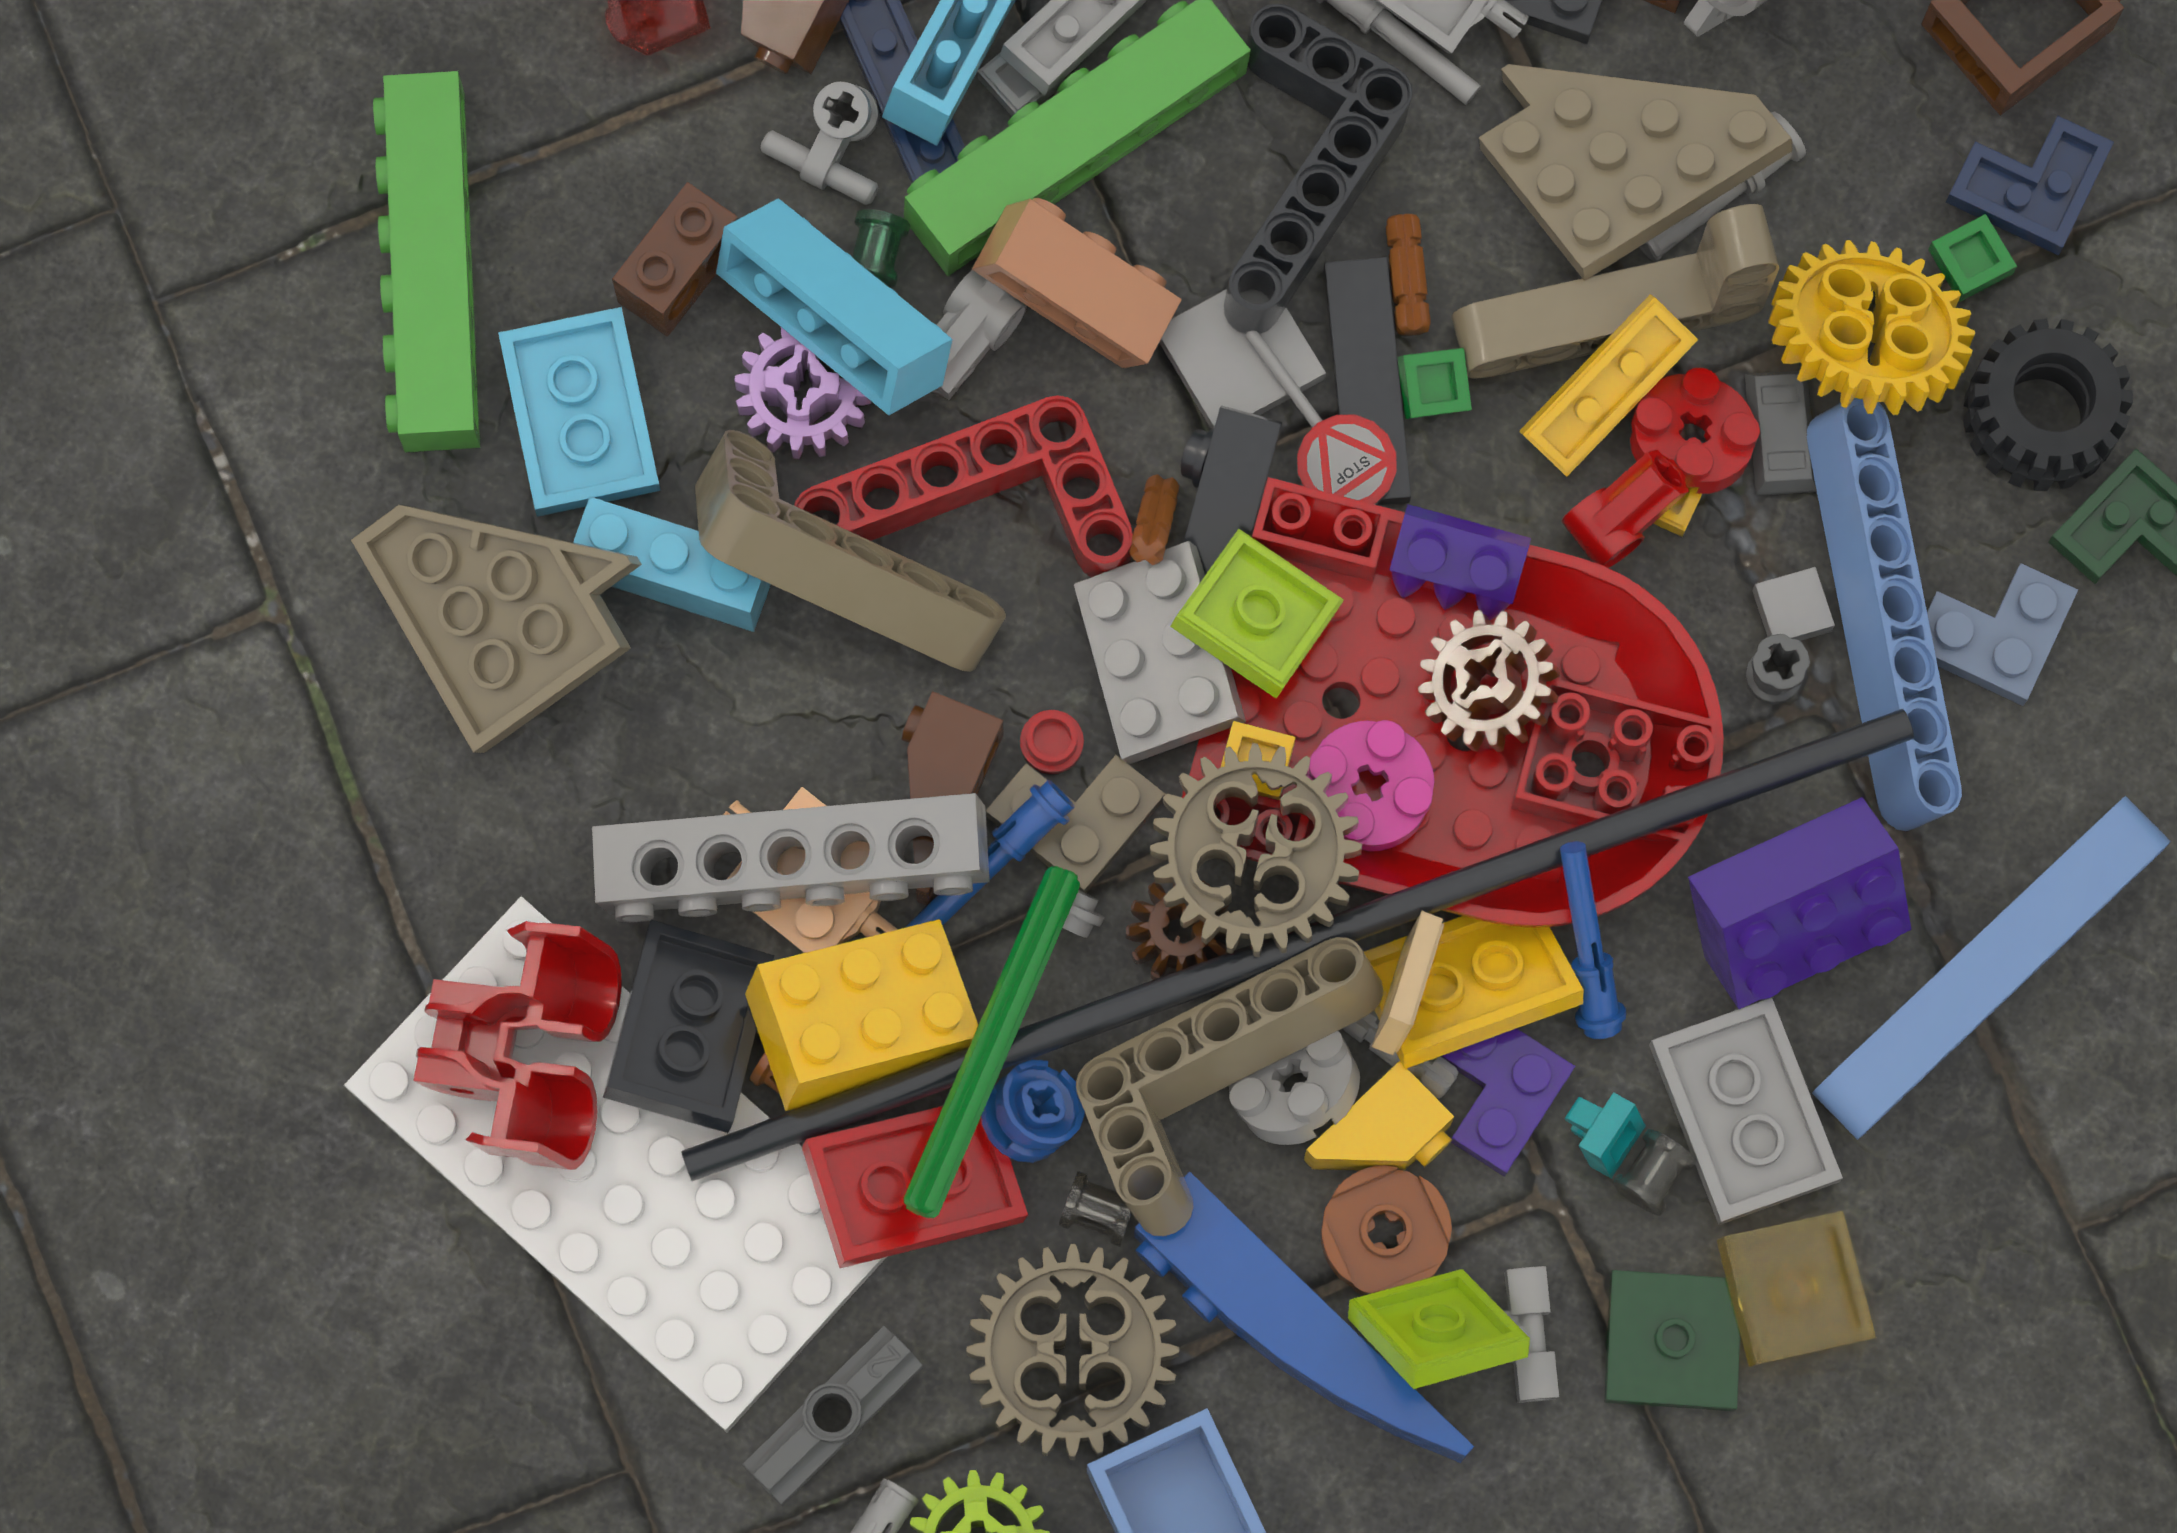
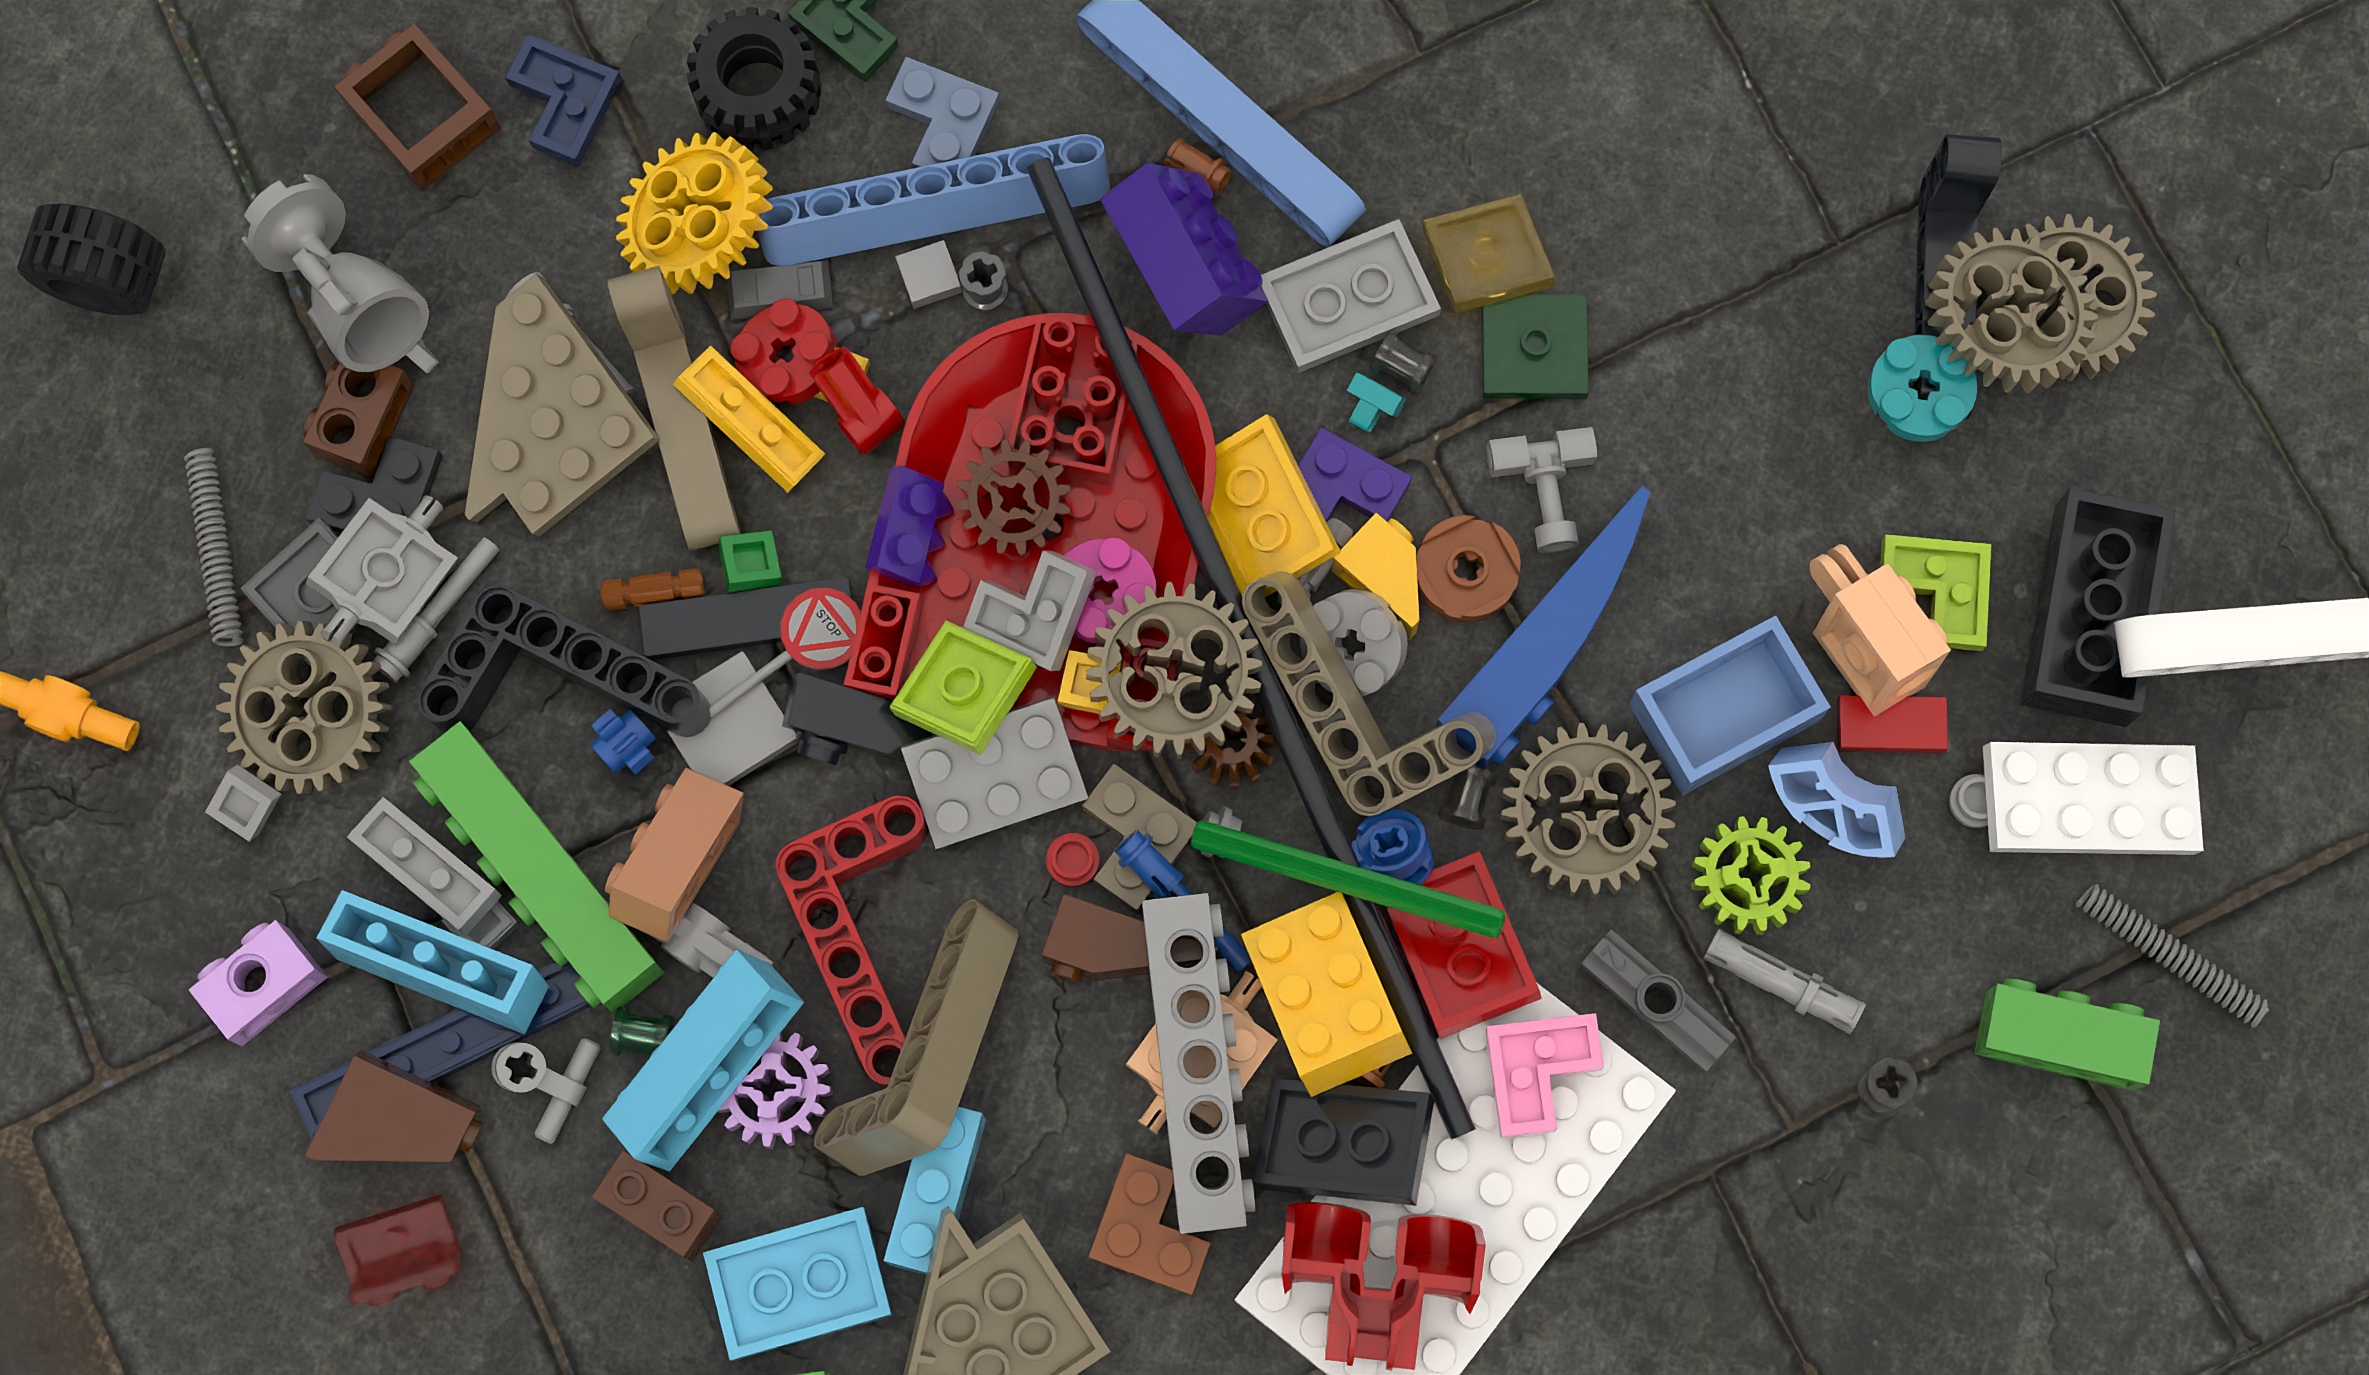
camera: 90 degrees left, 0 degrees up
(607, 788) = (1132, 1232): none -> dark orange plate
(769, 1243) = (1525, 1059): none -> bright pink plate
(1154, 519) = (880, 780): dark orange axle -> none
(1219, 232) = (622, 741): none -> blue gear
(1331, 699) = (1040, 621): none -> light grey plate
(1408, 983) = (1275, 546): tan tile -> none
(1438, 1328) = (1553, 514): lime plate -> none
(1601, 1012) = (1242, 410): blue pin -> none
(1913, 950) = (1191, 159): none -> dark orange pin
(1972, 257) = (627, 142): green plate -> none

